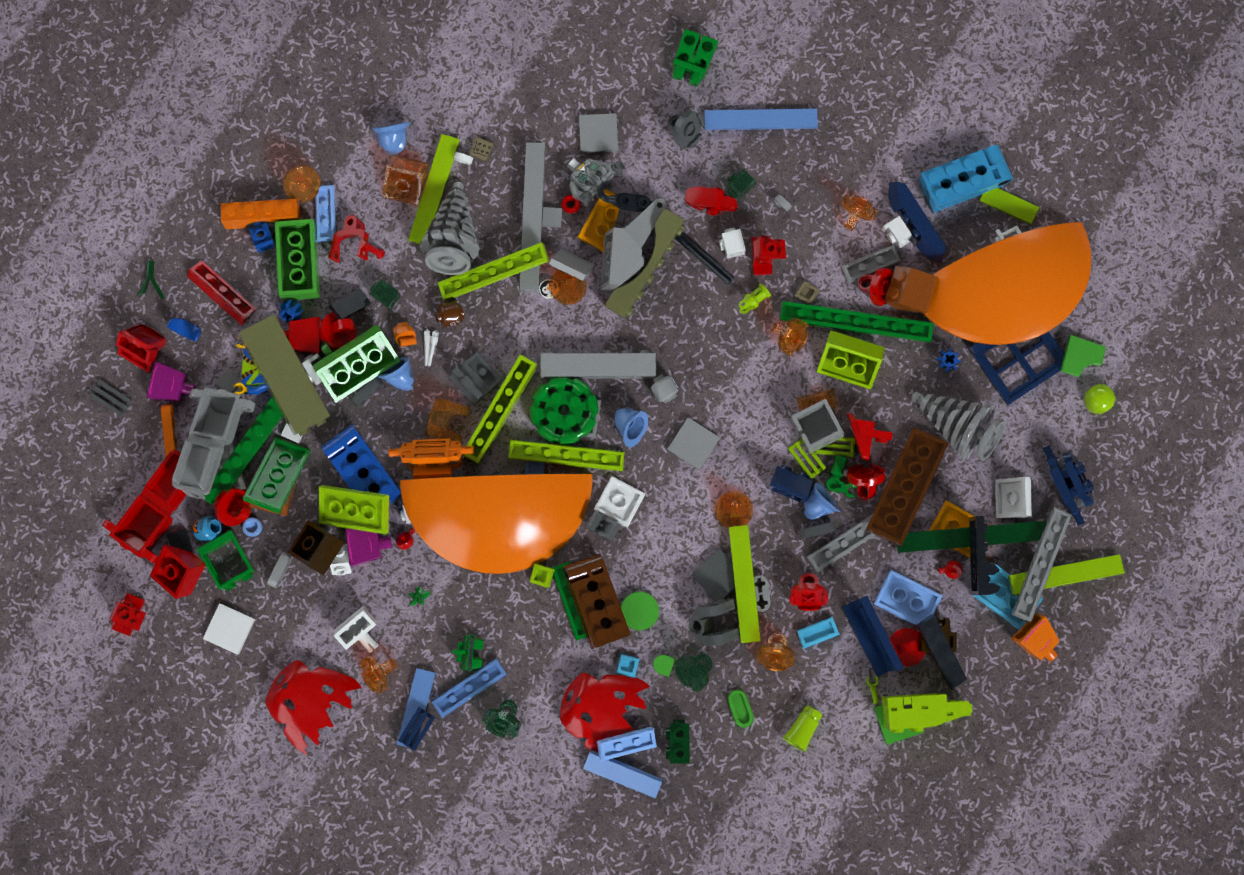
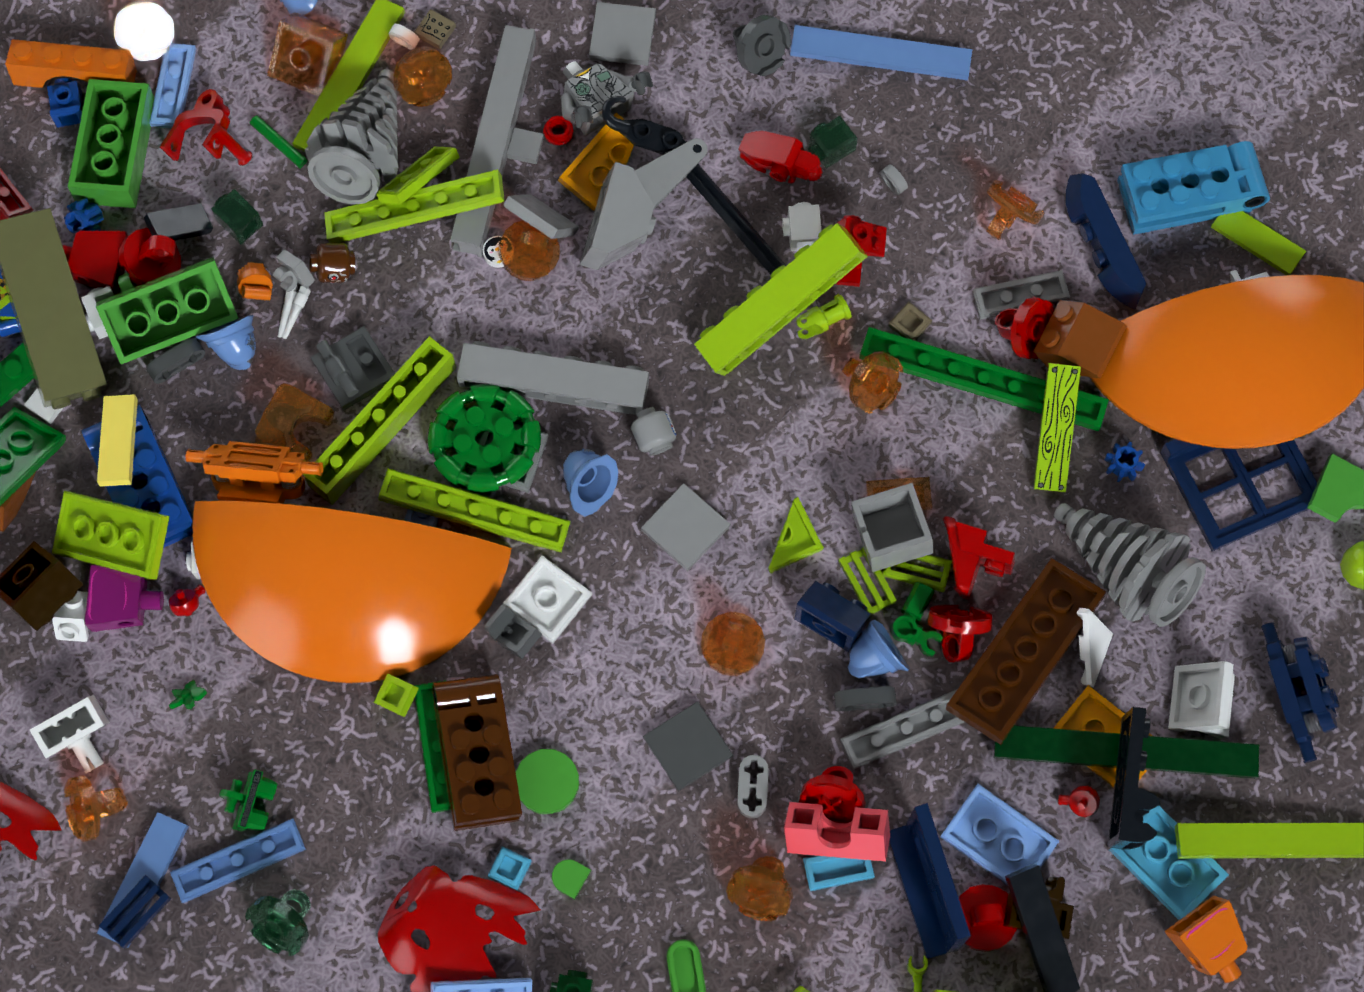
camera: 10 degrees right, 10 degrees down
(345, 451) = (117, 440): none -> light yellow tile
(398, 239) = (278, 141): none -> green piece
(426, 324) = (293, 272): none -> light grey tile
(480, 184) = (422, 76): none -> clear orange tile
(491, 250) = (417, 175): none -> lime tile
(666, 230) = (617, 280): olive arch -> none
(692, 672) = (614, 894): clear green tile -> none
(703, 625) = (647, 819): dark grey piece -> none
(728, 296) = (780, 299): none -> lime brick
(744, 584) = (728, 765): lime tile -> none
(760, 441) = (796, 540): none -> lime tile
(800, 616) = (814, 834): none -> coral arch
(850, 359) = (964, 435): lime slope -> none
(897, 232) = (1071, 251): white brick -> none
(905, 346) = (1057, 427): none -> lime tile
(945, 477) = (1092, 645): none -> white tile
(1041, 564) = (1233, 814): light grey tile -> none

